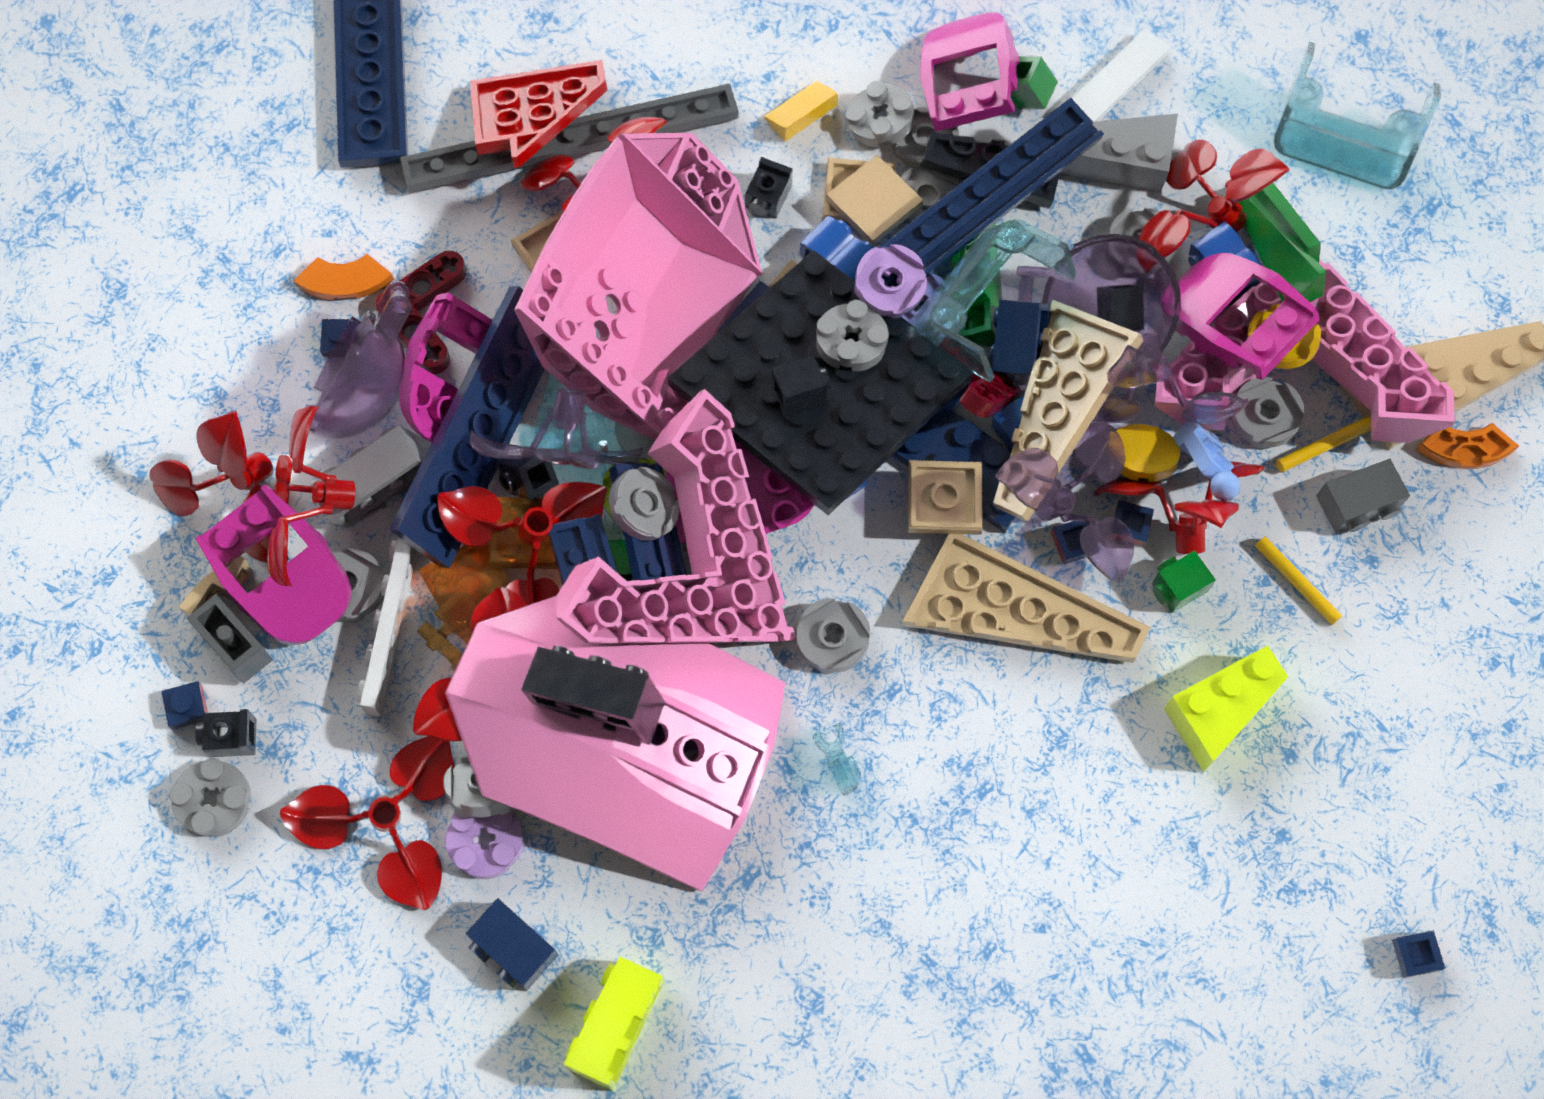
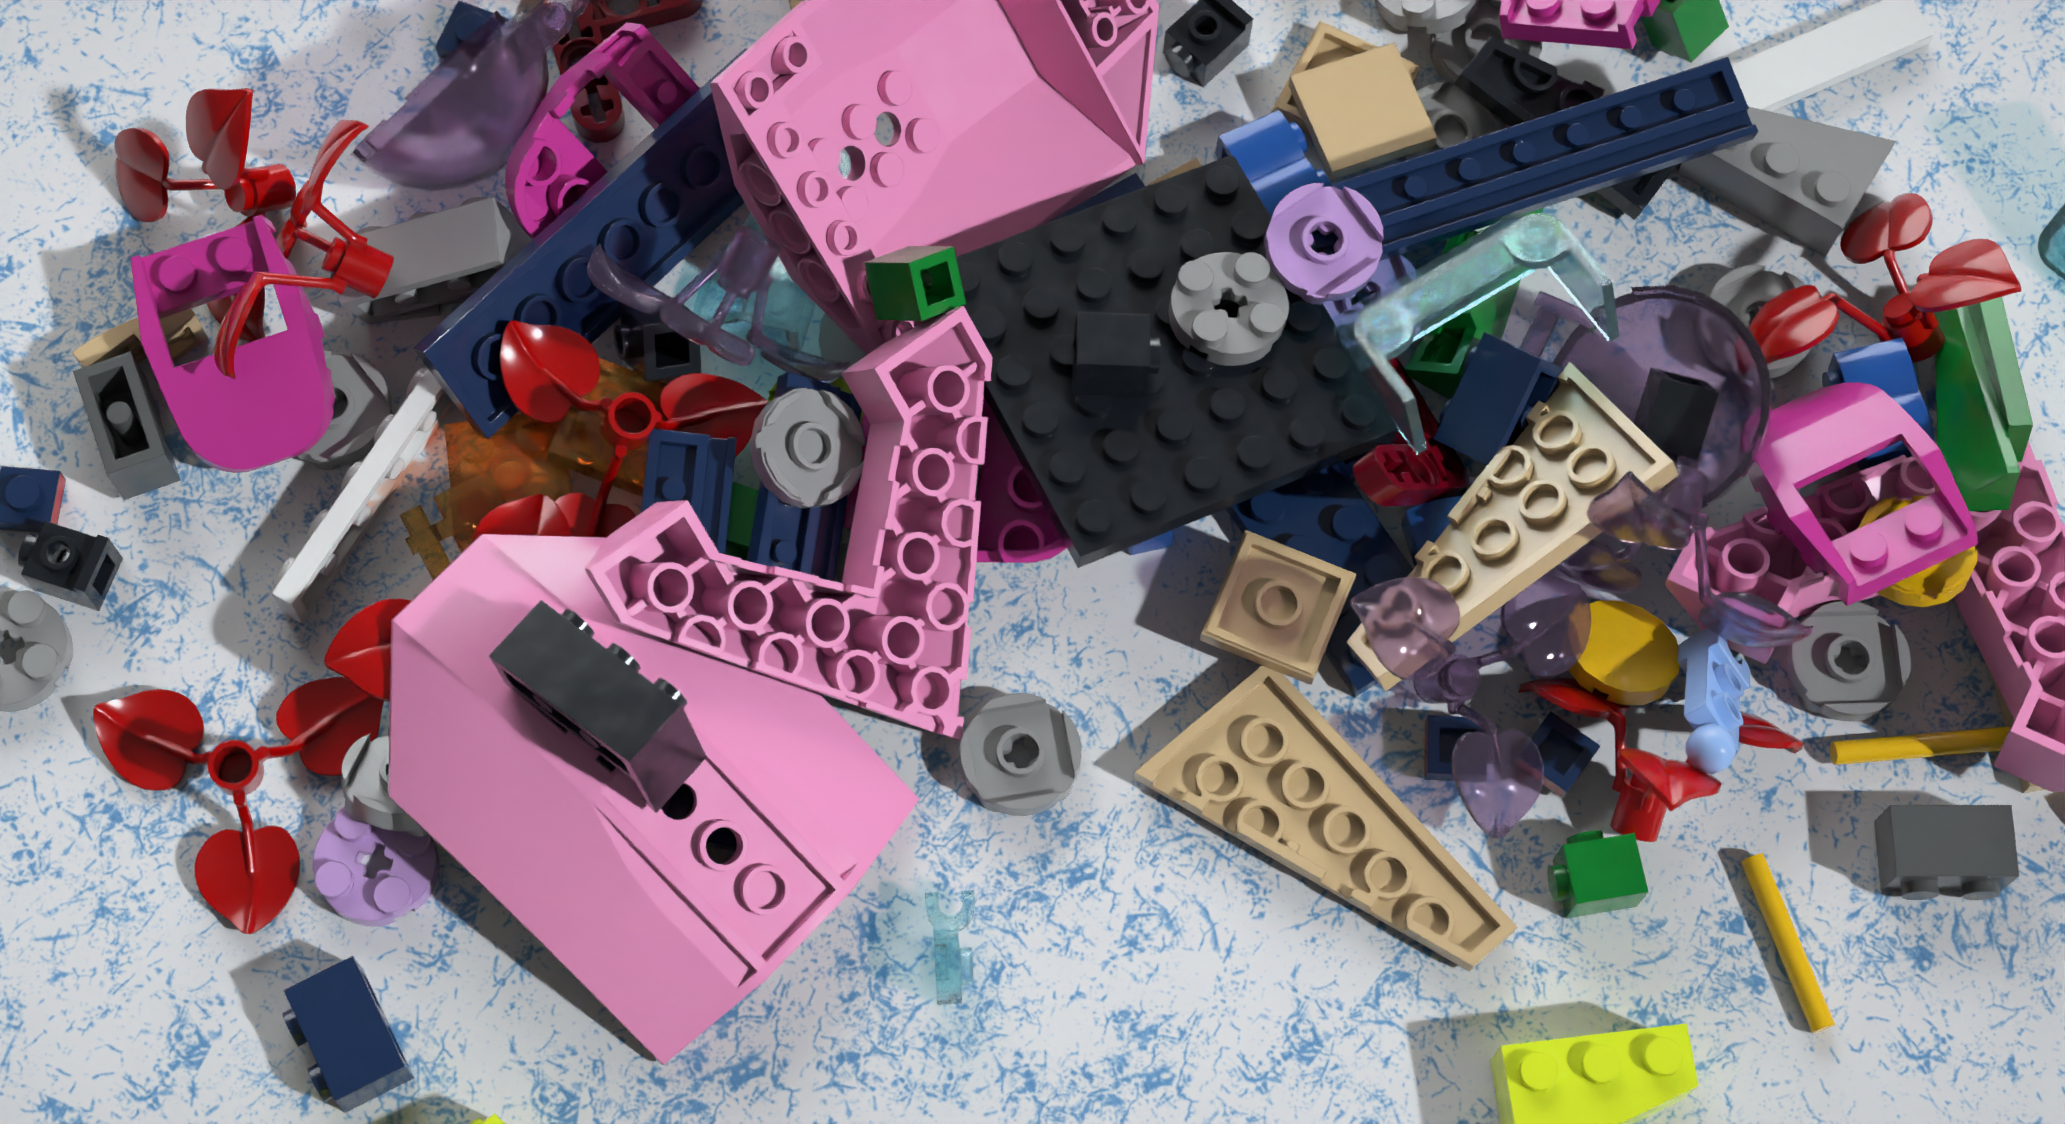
camera: 20 degrees right, 0 degrees up
(669, 386) = (915, 283): none -> green brick

